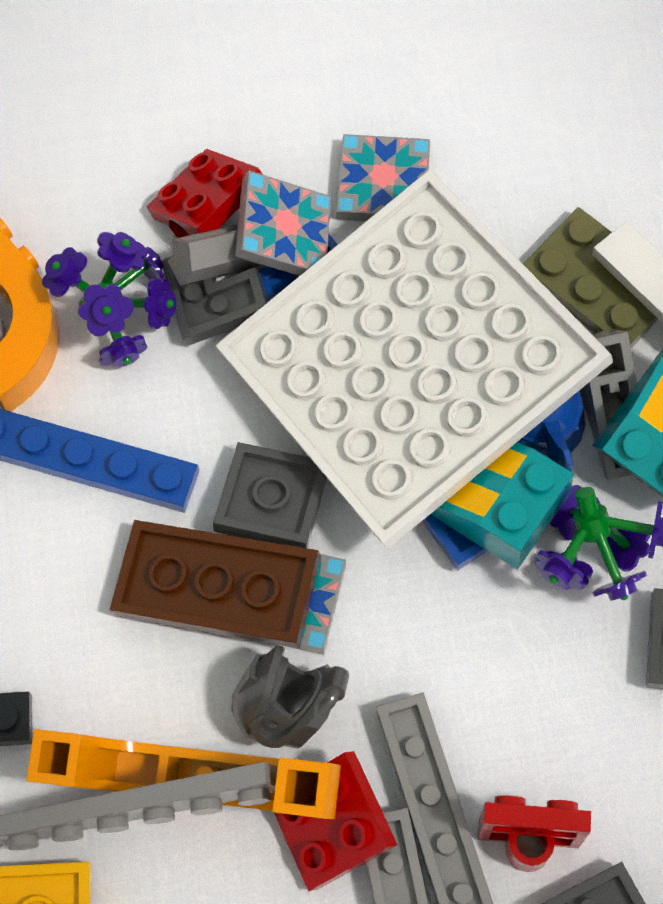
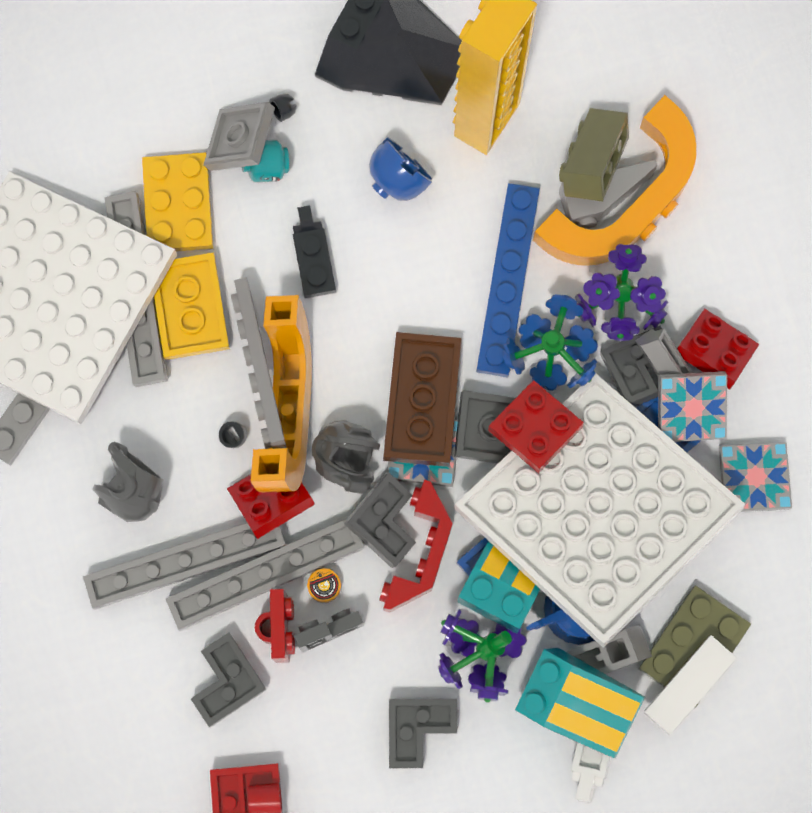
camera: 80 degrees right, 10 degrees up
(168, 374) = (538, 336): none -> blue plant
(233, 881) = (227, 438): none -> black hinge
(284, 423) = (536, 426): none -> red plate
(372, 592) = (404, 591): none -> red slope
(387, 672) = (374, 520): none -> dark grey plate
(472, 761) = (324, 585): none -> tile
(551, 770) = (315, 634): none -> dark grey plate

